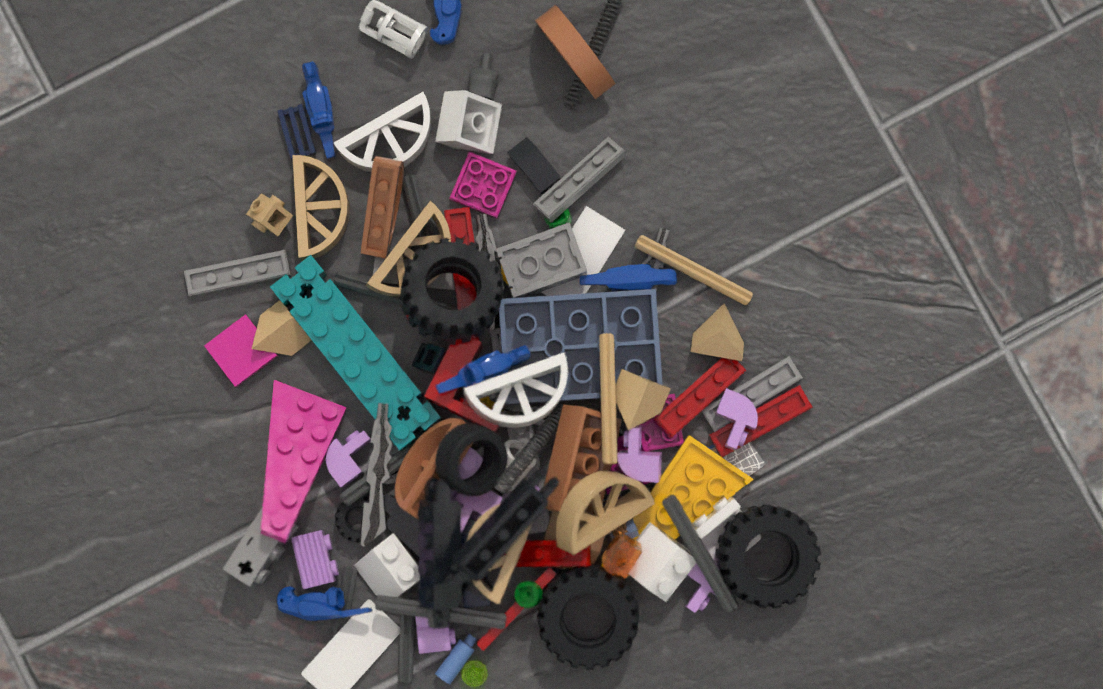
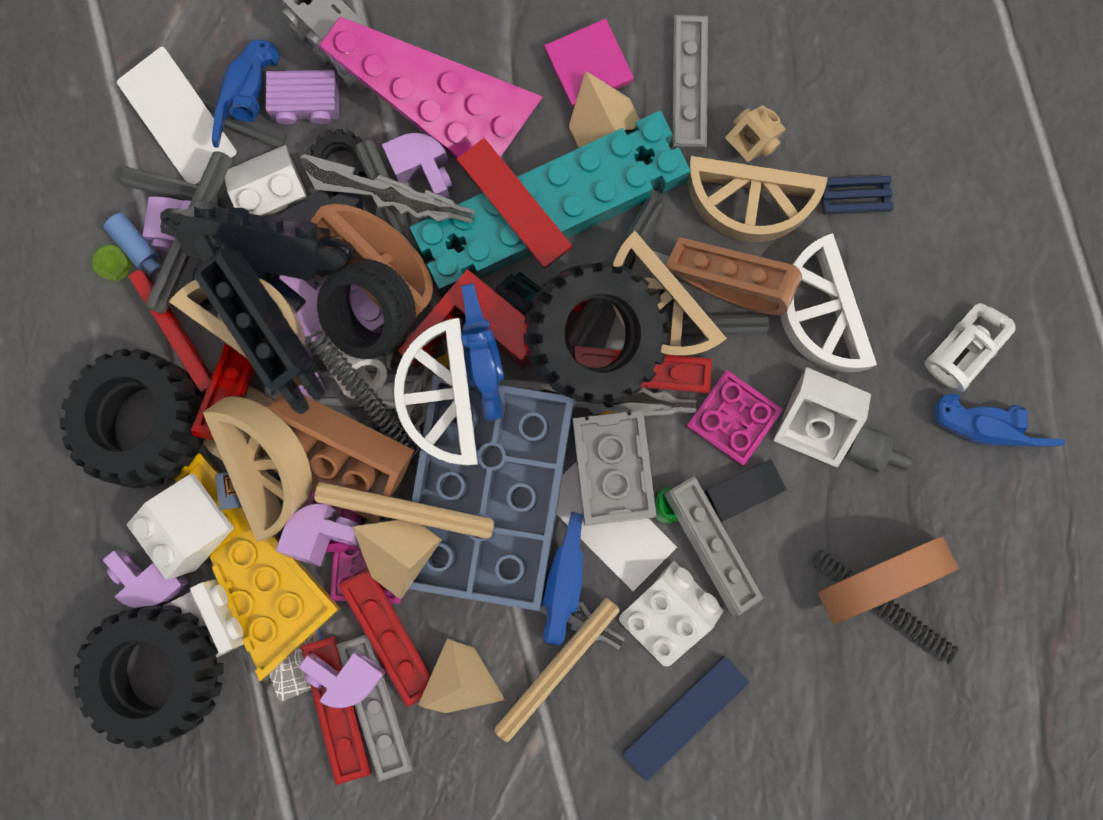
camera: 105 degrees right, 0 degrees up
(319, 107) = (885, 229): blue animal -> none
(366, 375) = (514, 203): none -> red tile
(528, 594) = (180, 347): green tile -> none
(621, 555) = (194, 479): clear orange brick -> none
(635, 198) = (671, 615): none -> white bracket
(700, 553) = (172, 584): dark grey axle -> none
(705, 173) = (685, 718): none -> dark blue tile

